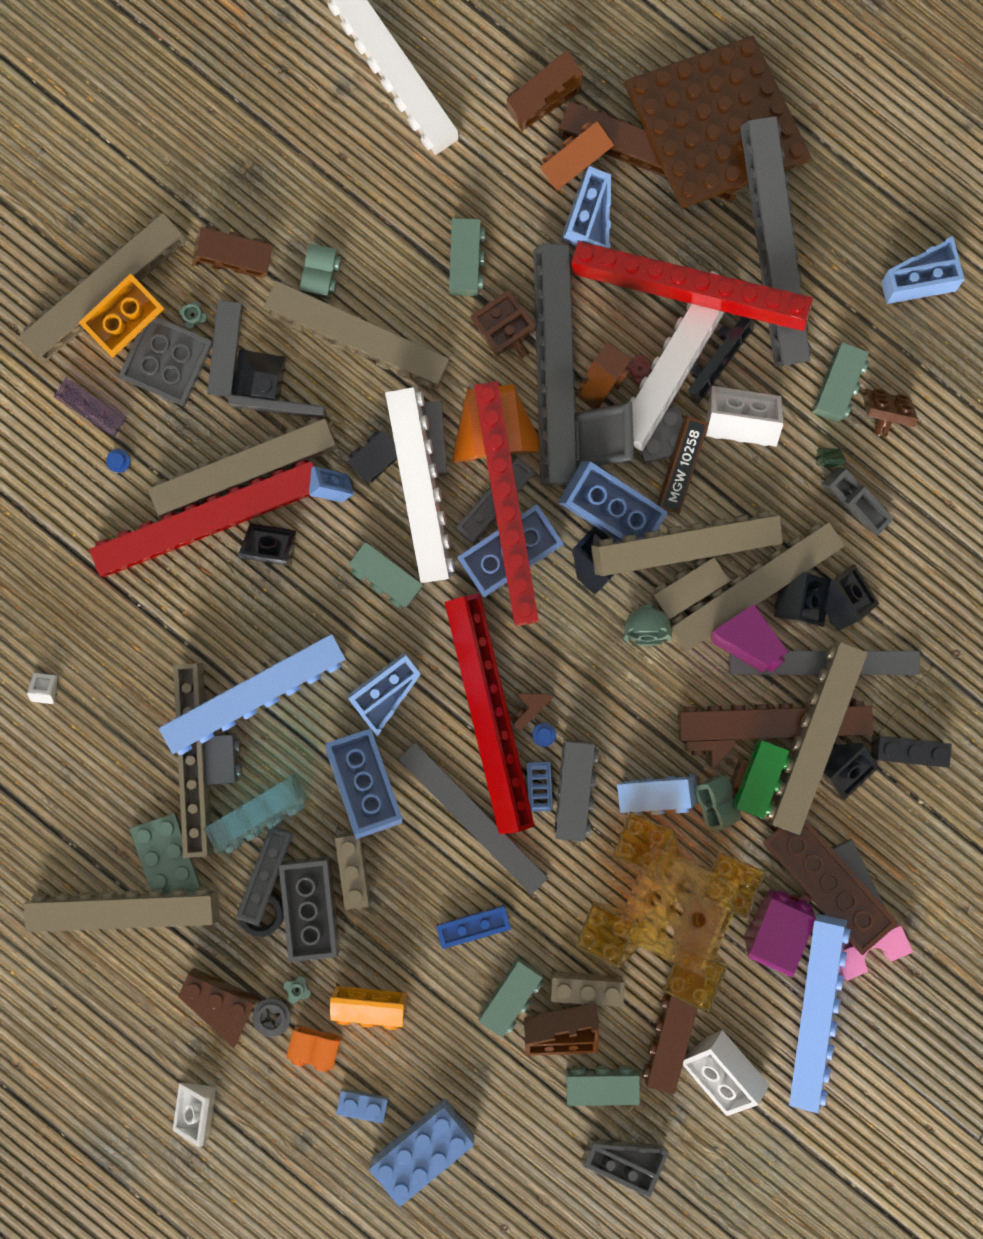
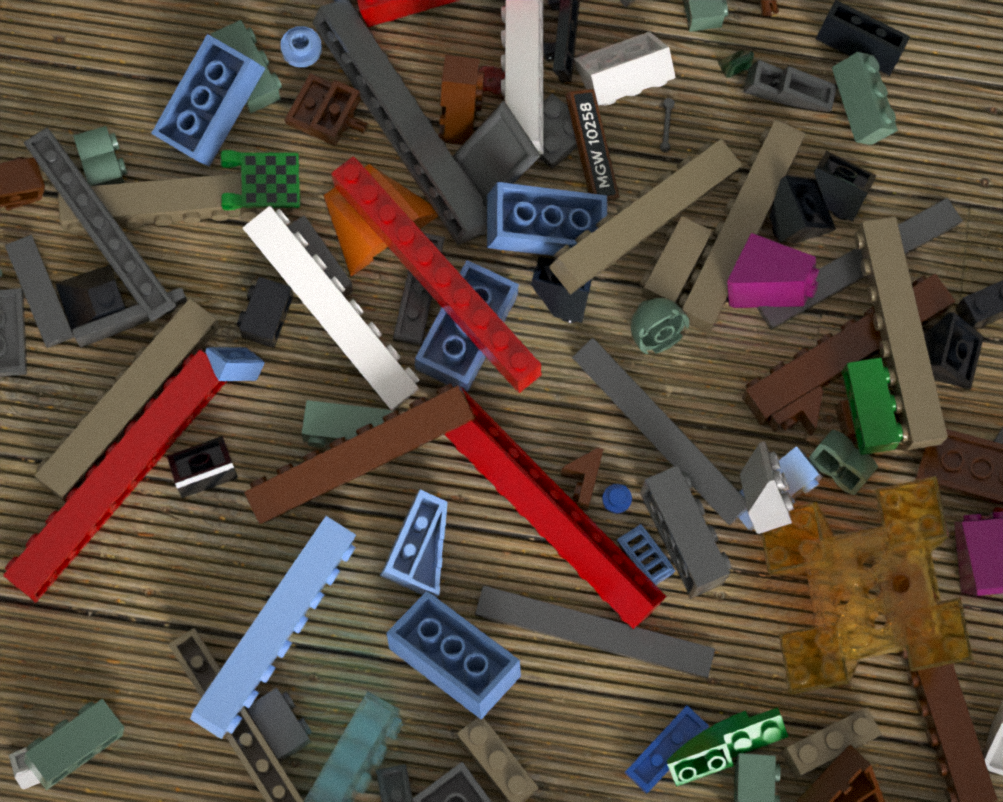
camera: 35 degrees left, 15 degrees down
(76, 693) = (73, 743): none -> sand green brick
(289, 324) = (99, 224): none -> dark grey tile
(380, 605) = (359, 454): none -> reddish brown brick
(419, 273) = (208, 100): none -> medium blue brick
(428, 360) = (265, 180): none -> green flag
(505, 946) = (716, 746): none -> green slope
(514, 264) = (301, 46): none -> light blue plate
(602, 706) = (661, 431): none -> dark grey tile
(643, 801) = (765, 490): none -> light grey slope
(760, 461) = (668, 105): none -> dark grey hinge
(907, 542) = (865, 98): none -> sand green brick
(936, 494) = (857, 32): none -> black brick

